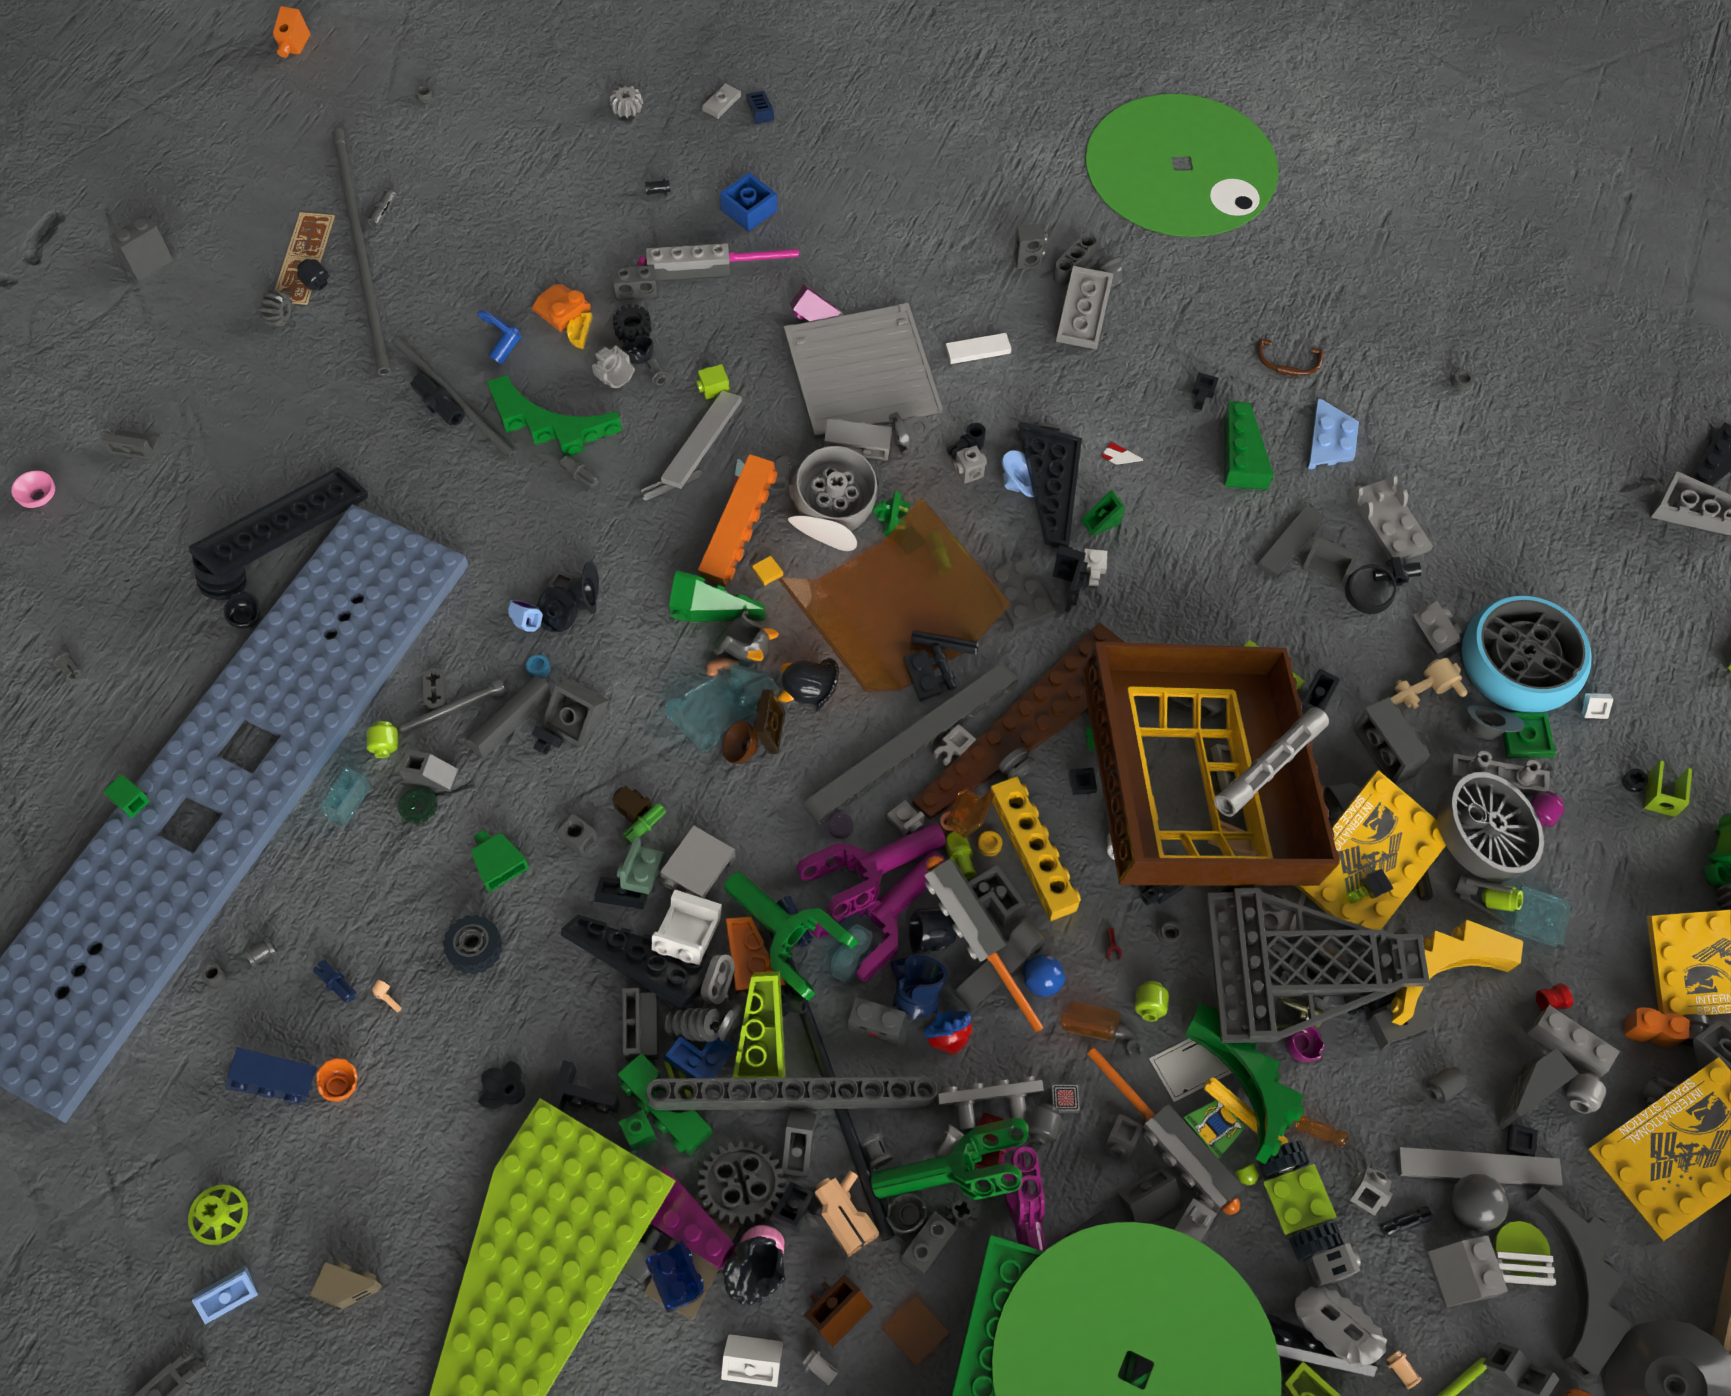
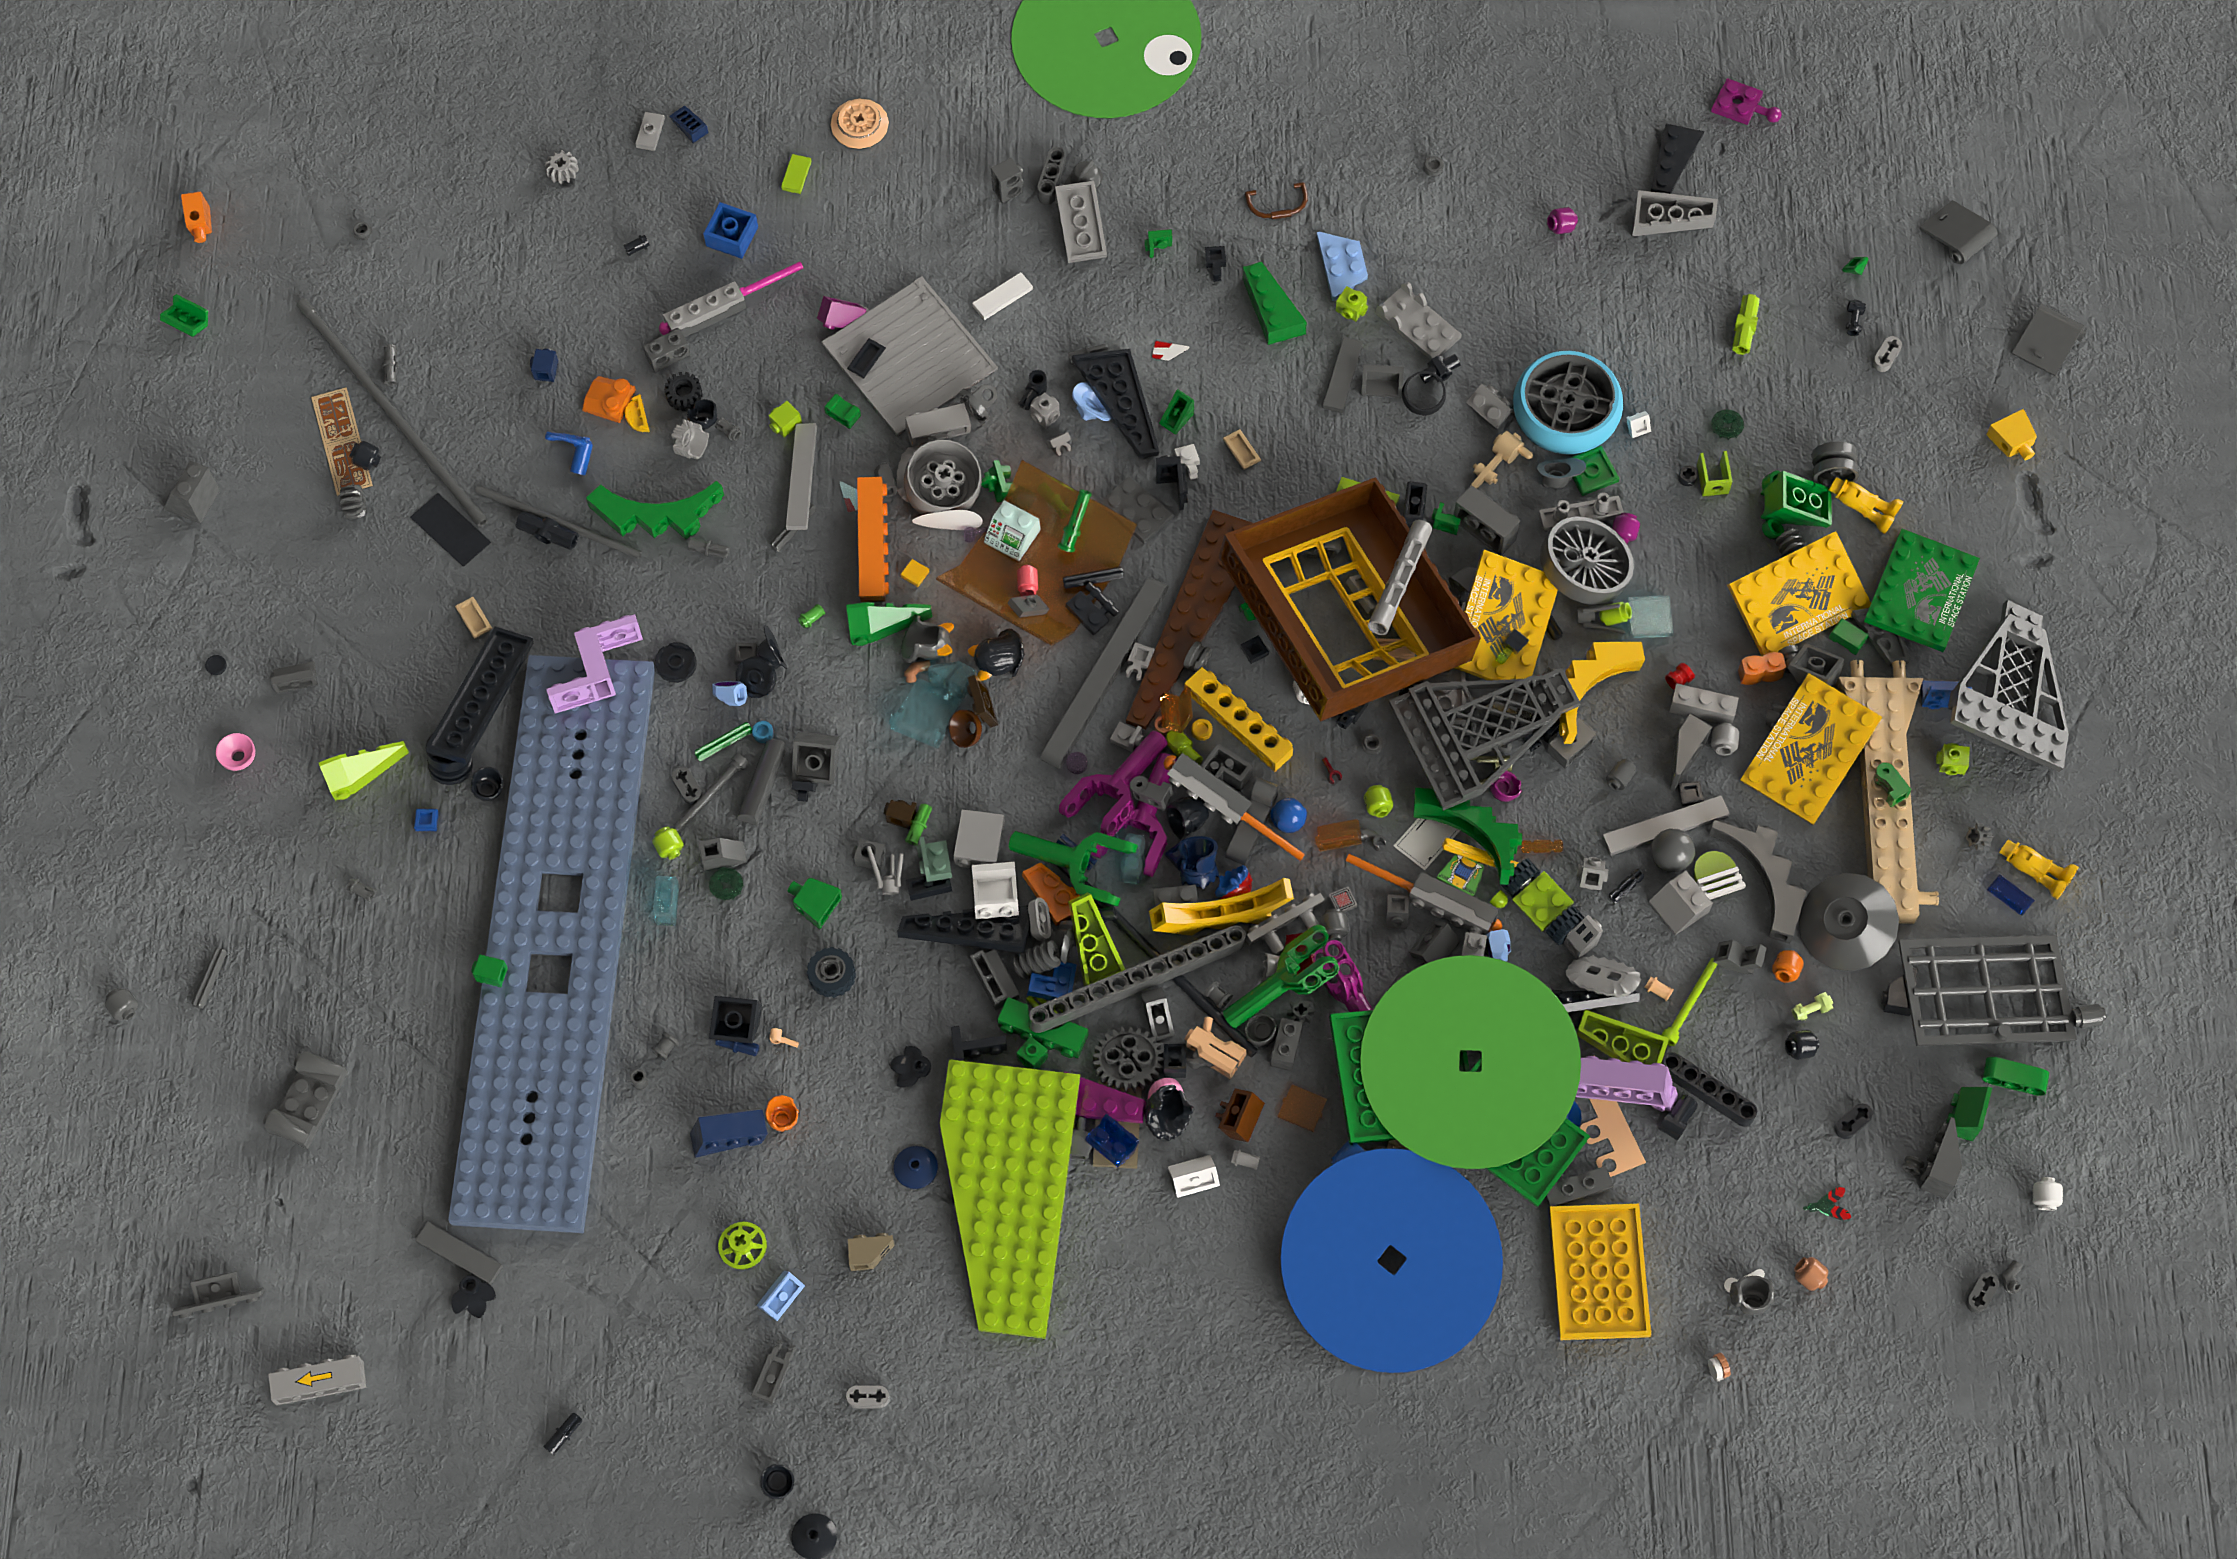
camera: 20 degrees left, 5 degrees up
(71, 406) = (216, 665): none -> black piece
(124, 550) = (350, 774): none -> wedge
(169, 623) = (426, 820): none -> blue tile
(232, 108) = (185, 316): none -> green bracket
(325, 452) = (473, 617): none -> tan tile
(343, 954) = (735, 1019): none -> black slope
(353, 368) = (450, 529): none -> black sticker
(400, 532) = (592, 644): none -> lavender bracket
(459, 1215) = (915, 1177): none -> dark blue dish
(490, 566) = (675, 662): none -> black tile
(493, 660) = (723, 741): none -> axle
(518, 256) = (544, 365): none -> dark blue brick
(582, 874) = (891, 883): none -> light grey plant
(643, 572) = (811, 616): none -> bright green pin
(772, 395) = (842, 411): none -> green piece
(818, 354) = (866, 358): none -> black tile
(835, 178) = (796, 174): none -> lime tile
(841, 552) = (970, 532): none -> clear purple hand
(862, 643) = (1028, 606): none -> dark grey plate
(875, 619) = (1027, 580): none -> coral brick
(882, 565) = (1012, 530): none -> light aqua slope
(901, 890) = (1151, 793): none -> dark grey leg
(915, 157) = (860, 134): none -> light nougat piece
(920, 1057) = (1221, 914): none -> yellow arch
(941, 586) = (1074, 531): none -> green pin
(971, 498) = (1058, 441): none -> light grey tile
(1155, 350) = (1158, 239): none -> green bracket
(1155, 575) = (1241, 449): none -> tan tile
(1225, 1232) = (1498, 944): none -> light blue rock
(1327, 476) = (1351, 304): none -> lime brick
(1343, 727) = (1445, 522): none -> green bracket
(1581, 475) = (1562, 220): none -> magenta head
(1701, 735) = (1727, 416): none -> clear green gear

